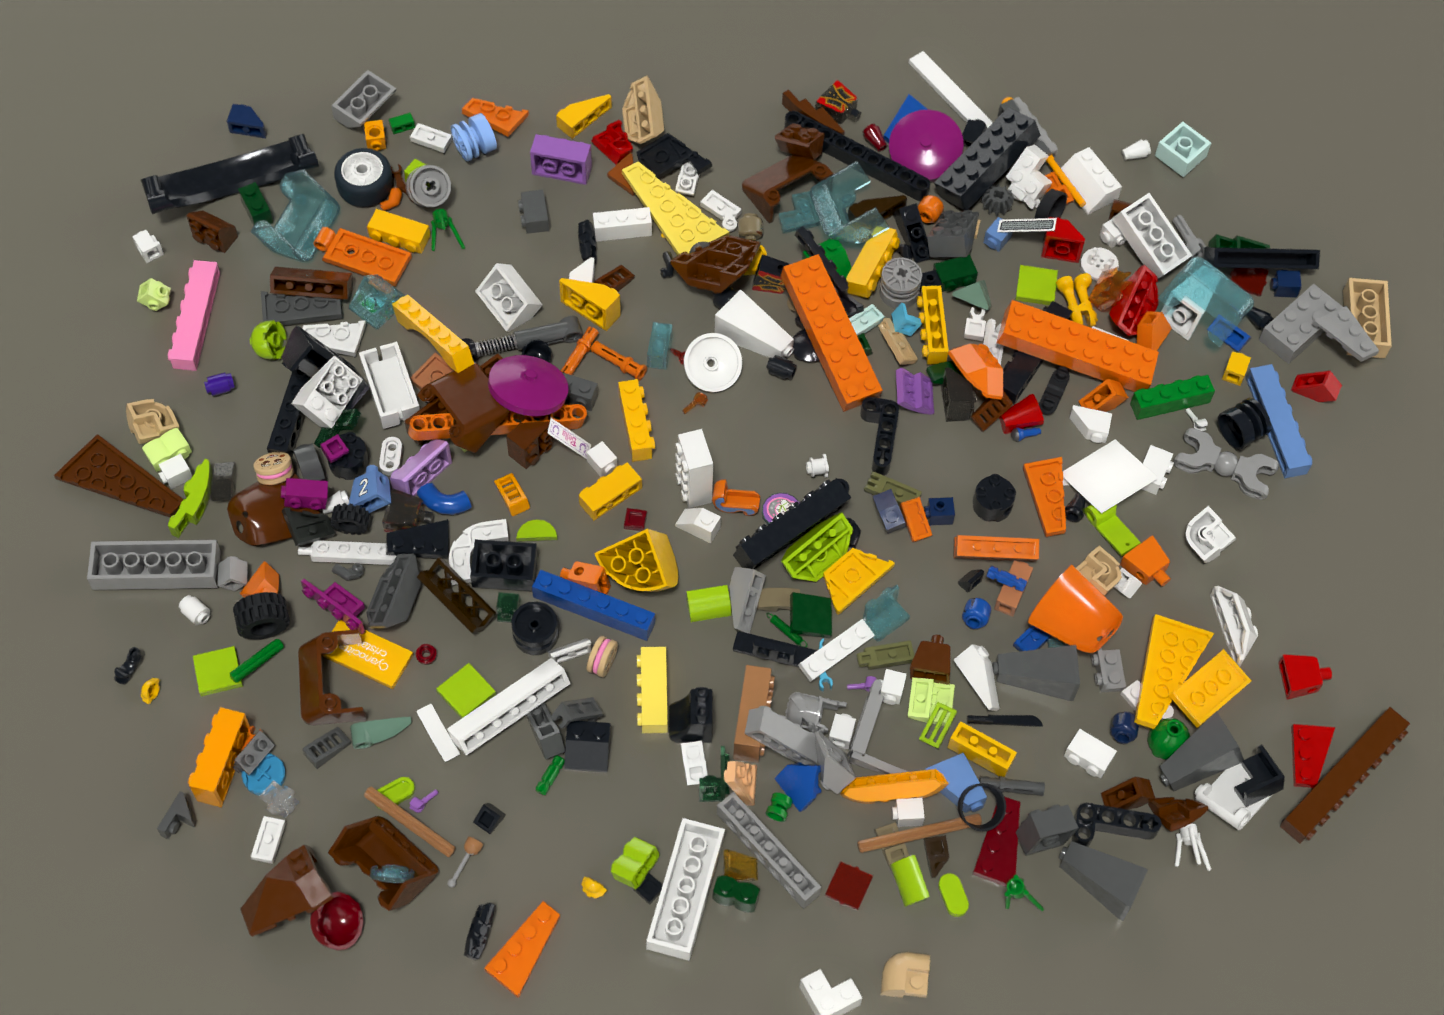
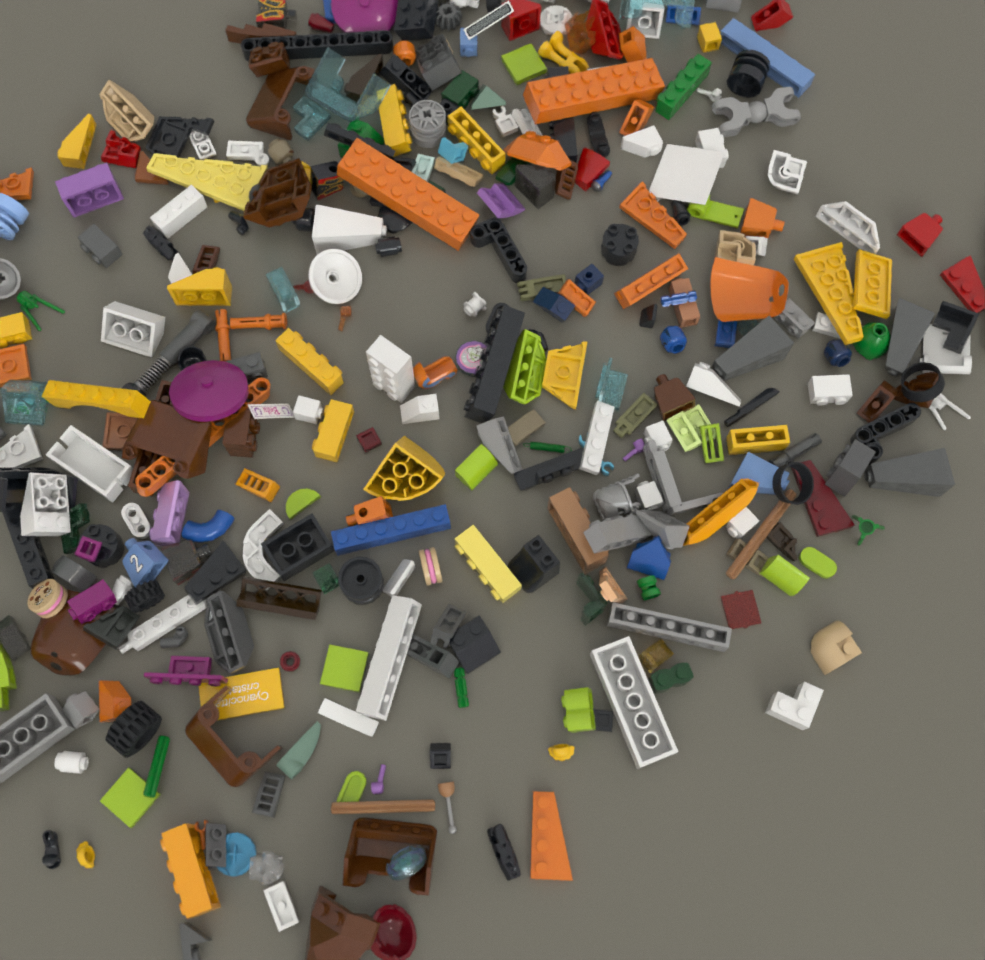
camera: 35 degrees left, 10 degrees up
(693, 762) = (560, 598): white slope -> none
(810, 615) = (557, 423): dark green tile -> none
(1180, 815) = (927, 395): none -> black tyre

